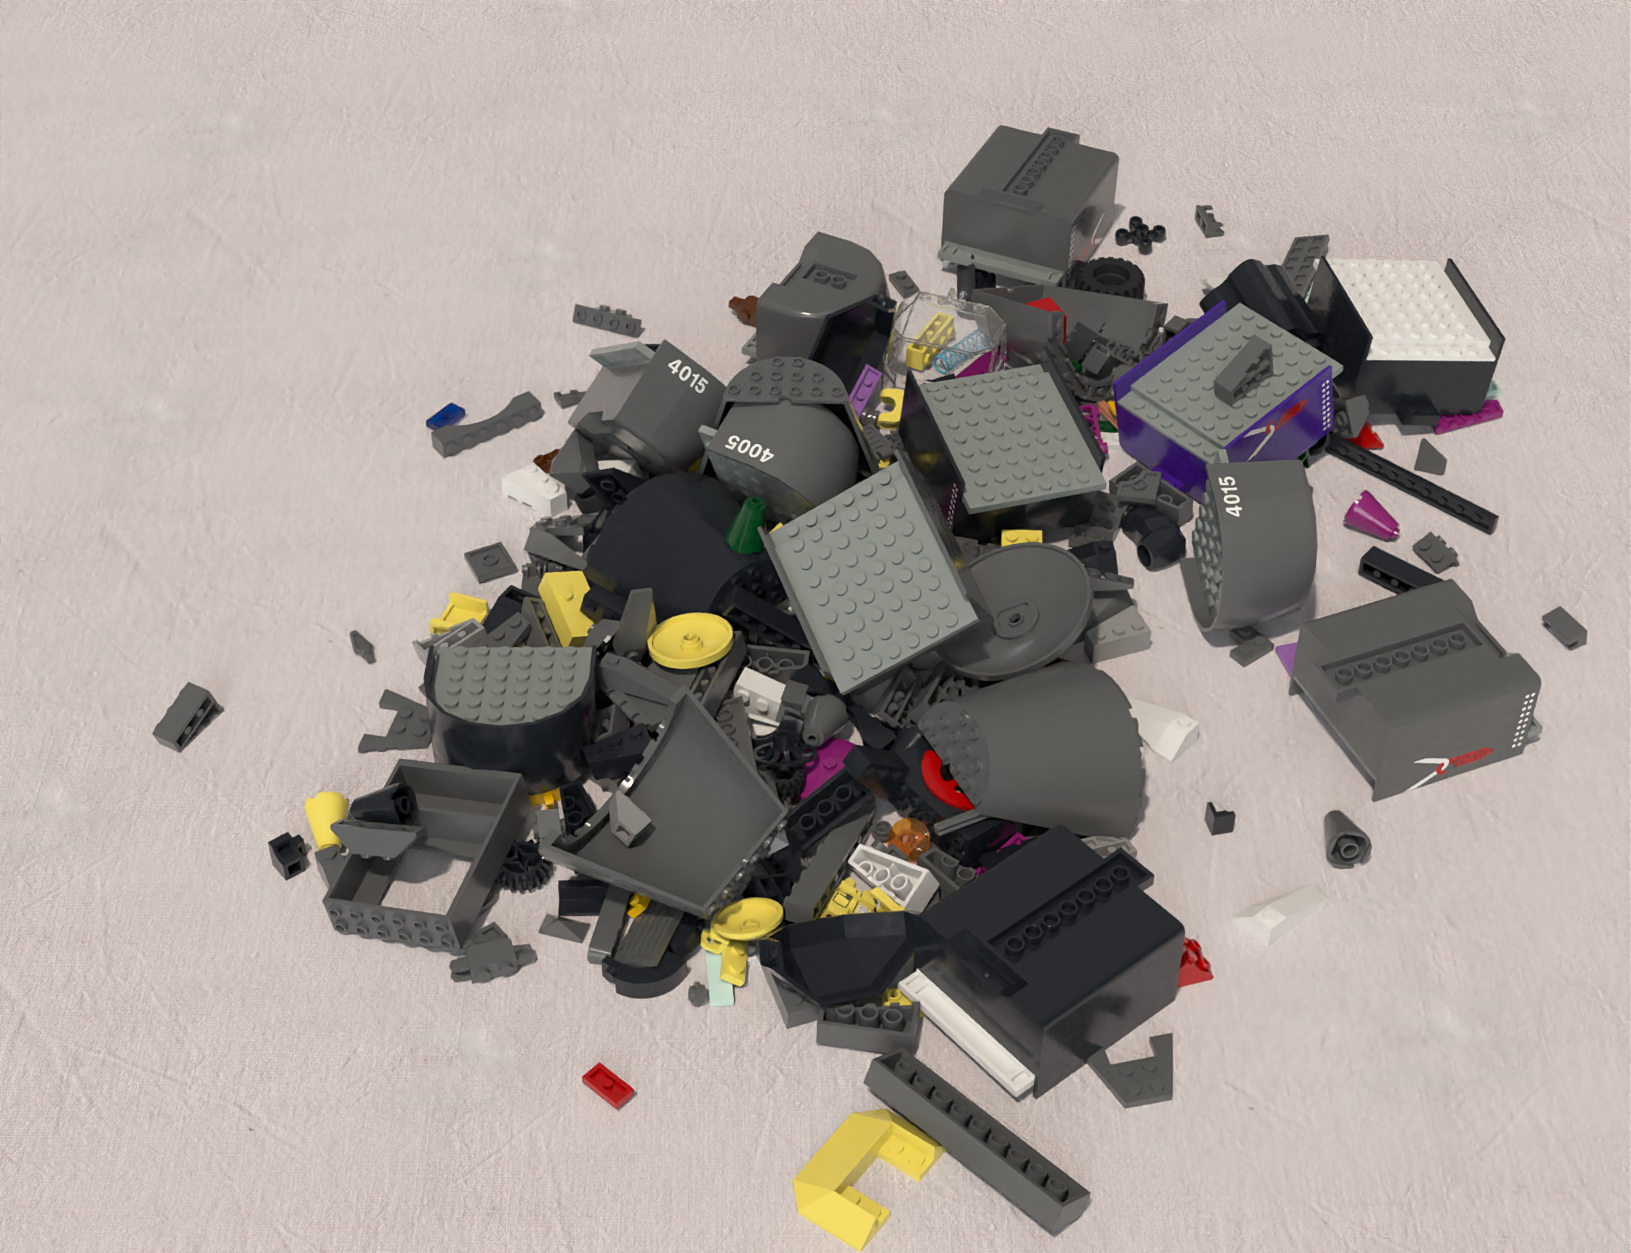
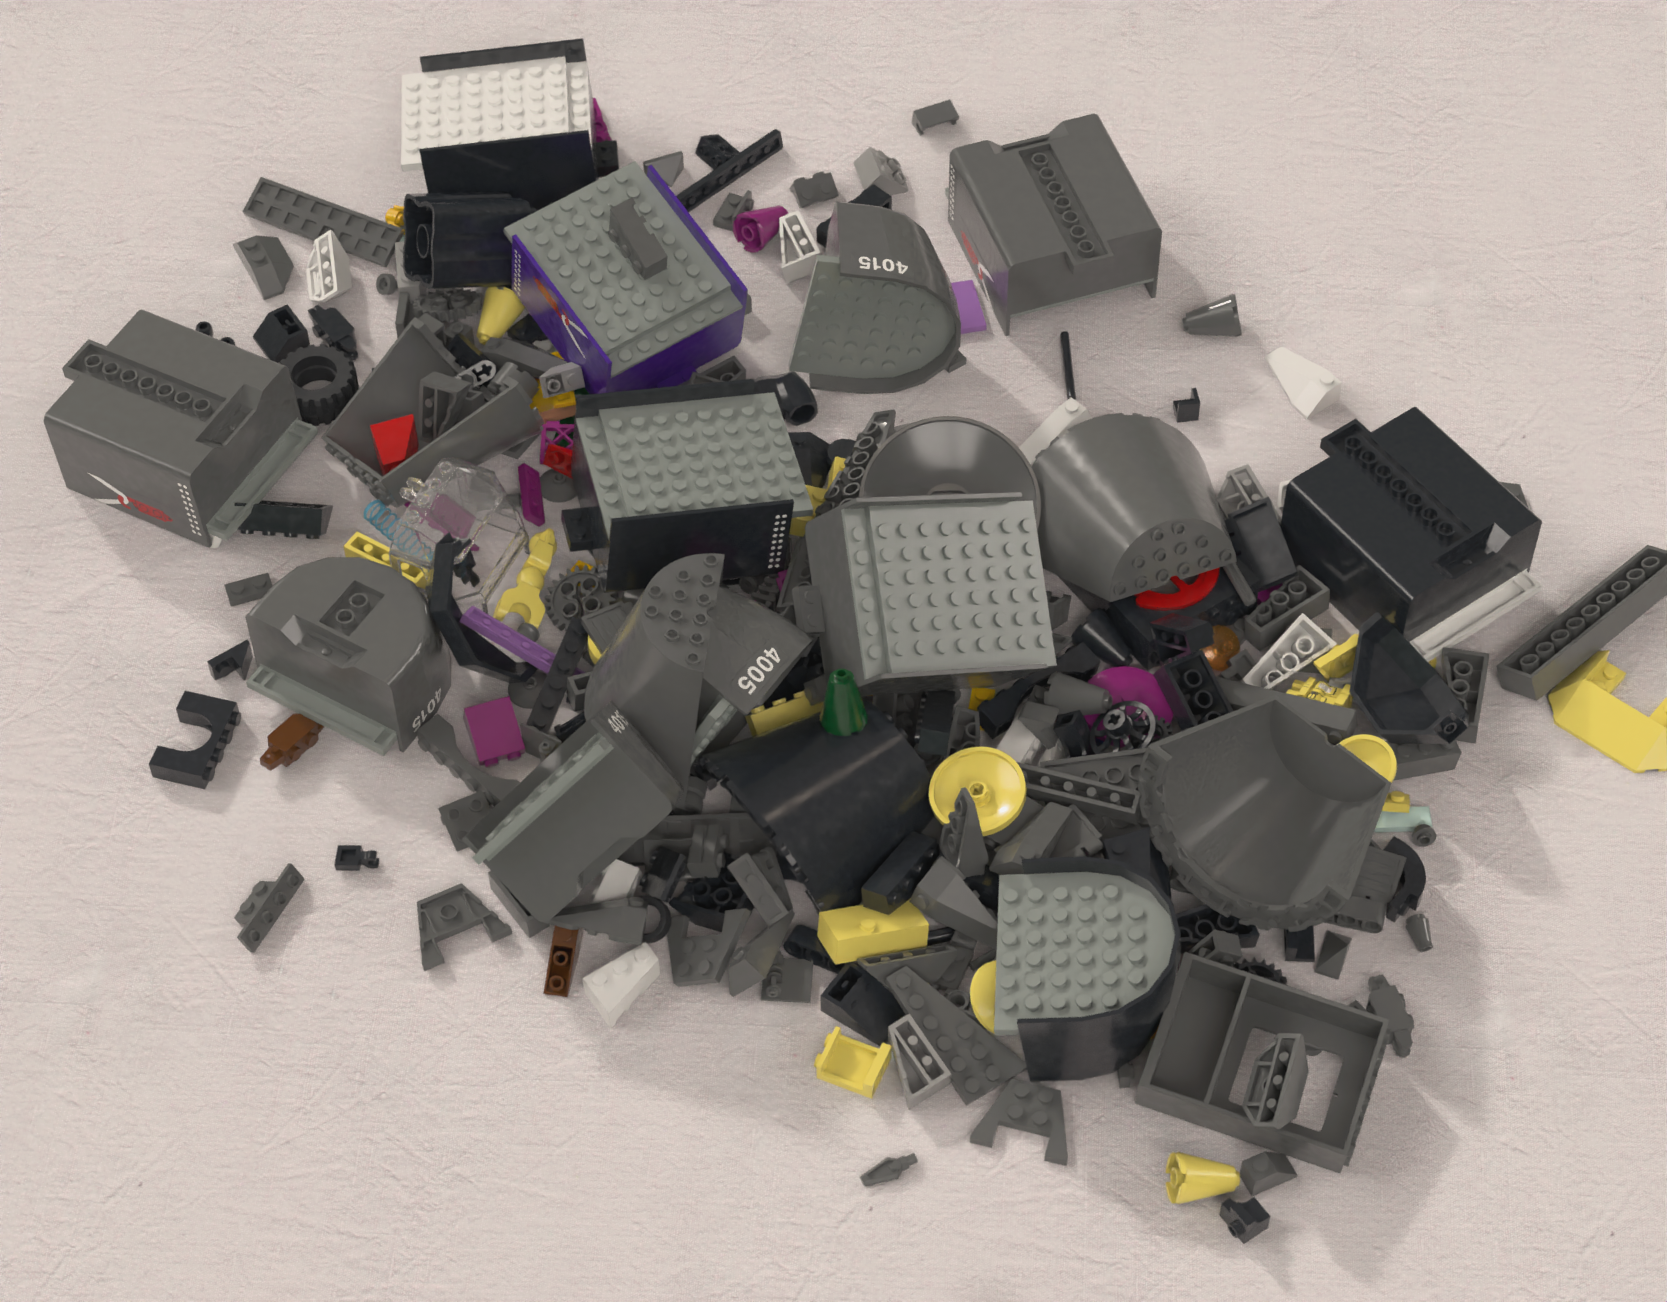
camera: 85 degrees left, 10 degrees up
(387, 805) = (1234, 1083): black cone -> none
(446, 416) = (451, 1092): clear blue plate -> none
(456, 438) = (453, 1006): dark grey arch -> none
(489, 562) = (748, 1034): dark grey plate -> none
(584, 988) = (1419, 930): none -> dark grey cone
(608, 1085) = (1542, 912): red plate -> none
(626, 819) = (1235, 864): light grey slope -> none
(732, 275) = (198, 766): none -> black arch
(1165, 269) = (281, 334): none -> black slope
(1177, 293) = (334, 330): none -> black hinge
(1207, 222) = (190, 286): dark grey hinge -> none
(1237, 250) = (265, 263): none -> dark grey wedge
(1258, 735) = (1067, 361): none -> black bar
(1352, 541) = (797, 247): none -> white wedge
(1396, 506) = (731, 207): none -> dark grey bracket
(1466, 486) = (715, 150): none -> black bracket
(1480, 590) = (880, 170): none -> light grey slope

